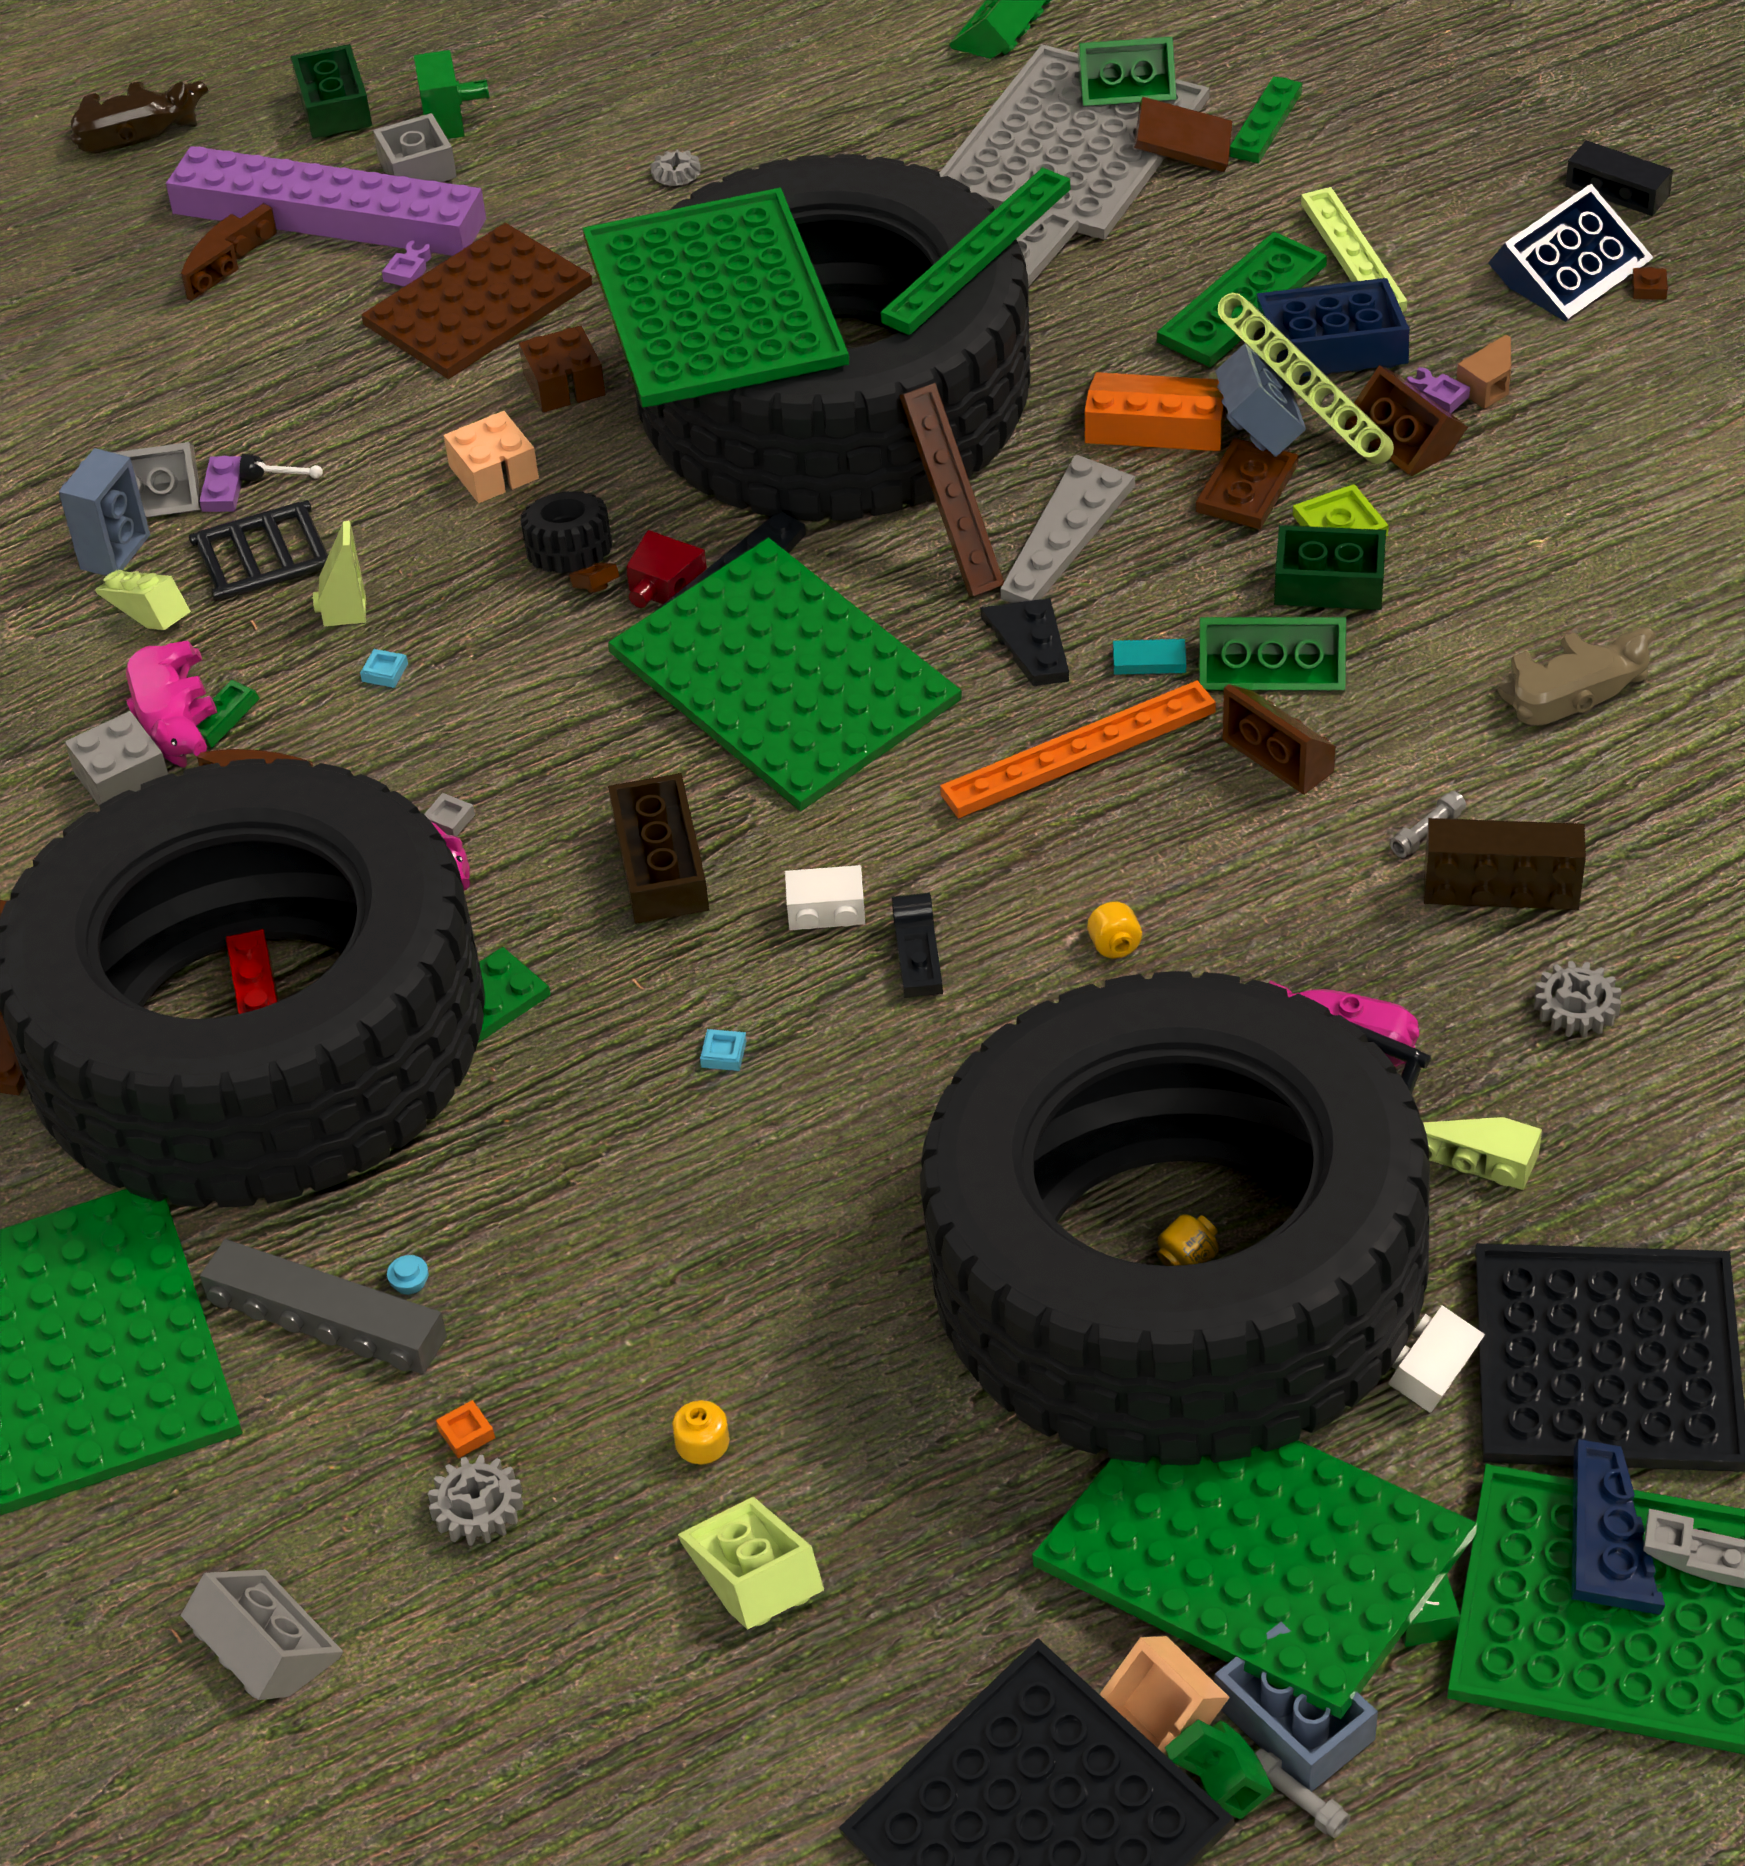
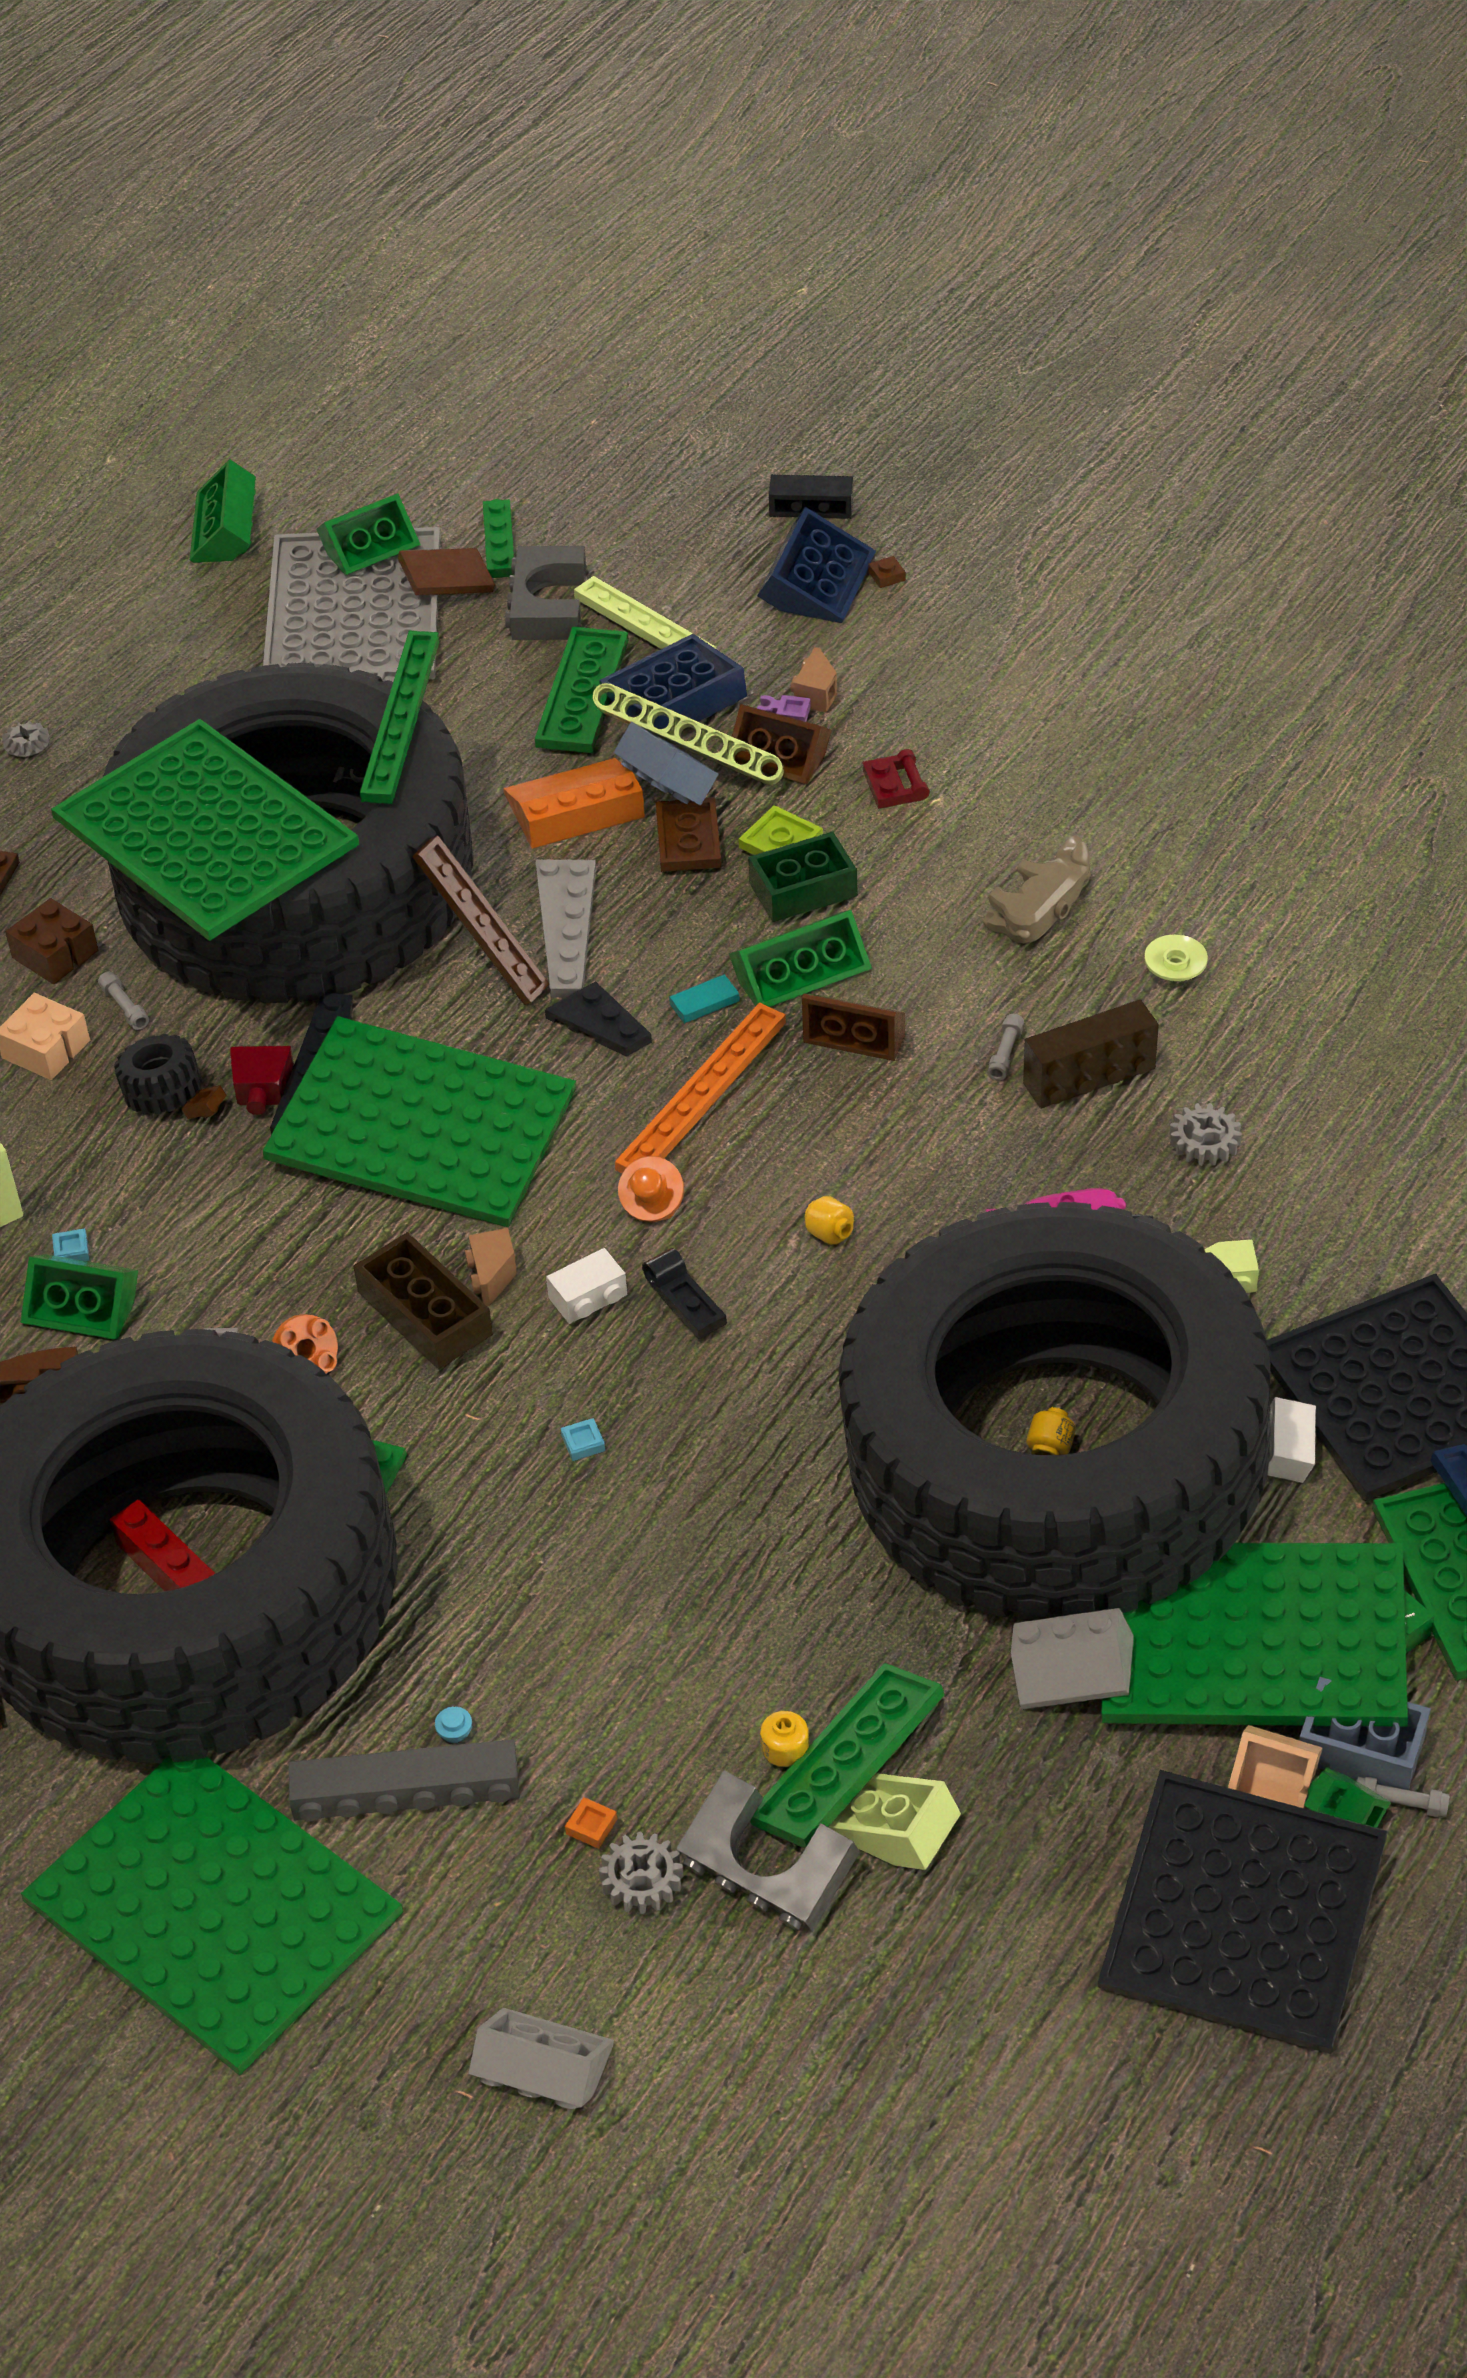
camera: 30 degrees left, 0 degrees up
(354, 715) = (78, 1295): none -> green slope
(516, 849) = (310, 1338): none -> orange plate
(559, 1506) = (796, 1894): none -> arch
(591, 465) = (134, 1014): none -> light grey bar
(750, 1477) = (847, 1754): none -> green plate
(752, 839) = (493, 1262): none -> medium nougat slope
(956, 827) = (651, 1189): none -> orange plate
(1038, 1482) = (1072, 1658): none -> light grey slope
(1274, 161) = (539, 568): none -> dark grey arch
(1495, 500) = (886, 783): none -> dark red plate
(1677, 799) = (1176, 957): none -> yellowish green dish

